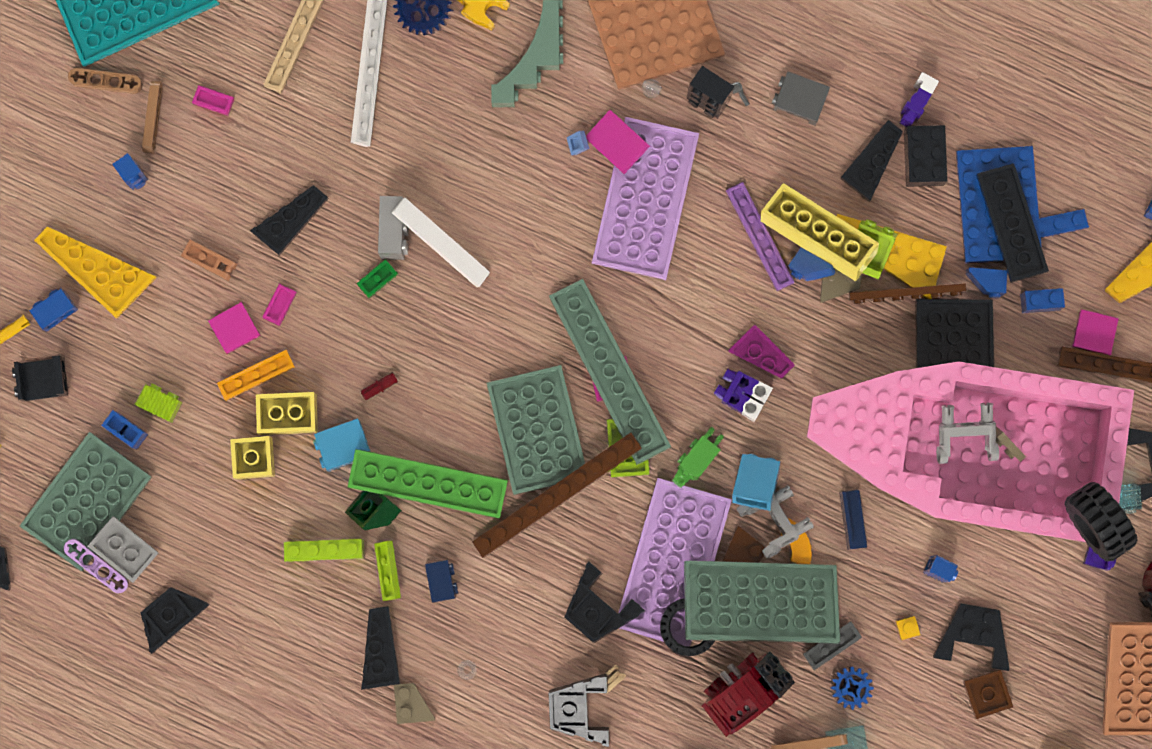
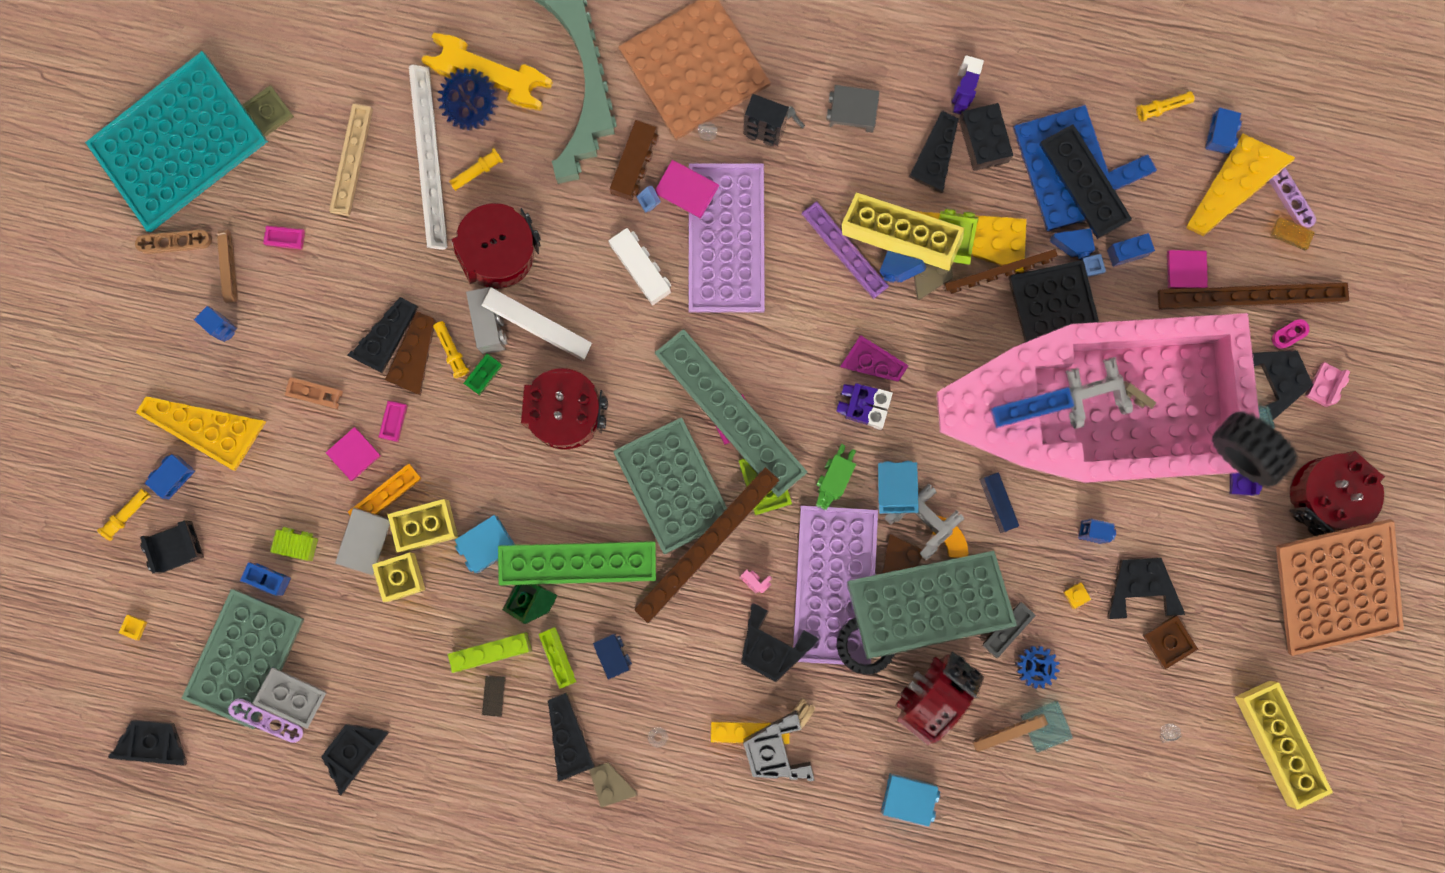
camera: 15 degrees left, 0 degrees up
(225, 415) = (363, 541): none -> light grey tile
(309, 250) = (410, 362): none -> reddish brown wing
(318, 593) = (493, 696): none -> clear smoke tile
(352, 255) = (454, 357): none -> yellow pin
(379, 386) = (508, 478): dark red axle -> none
(418, 157) = (496, 245): none -> dark red piece
(423, 72) = (483, 165): none -> yellow pin
(448, 331) = (563, 409): none -> dark red piece
(544, 682) = (736, 731): none -> yellow plate
(554, 208) = (639, 266): none -> white brick
(572, 101) = (633, 160): none -> reddish brown brick
(593, 538) = (751, 580): none -> bright pink bracket
(900, 433) = (1032, 407): none -> blue plate
(1002, 308) = (1094, 265): none -> medium blue plate
(1103, 164) = (1157, 107): none -> yellow pin

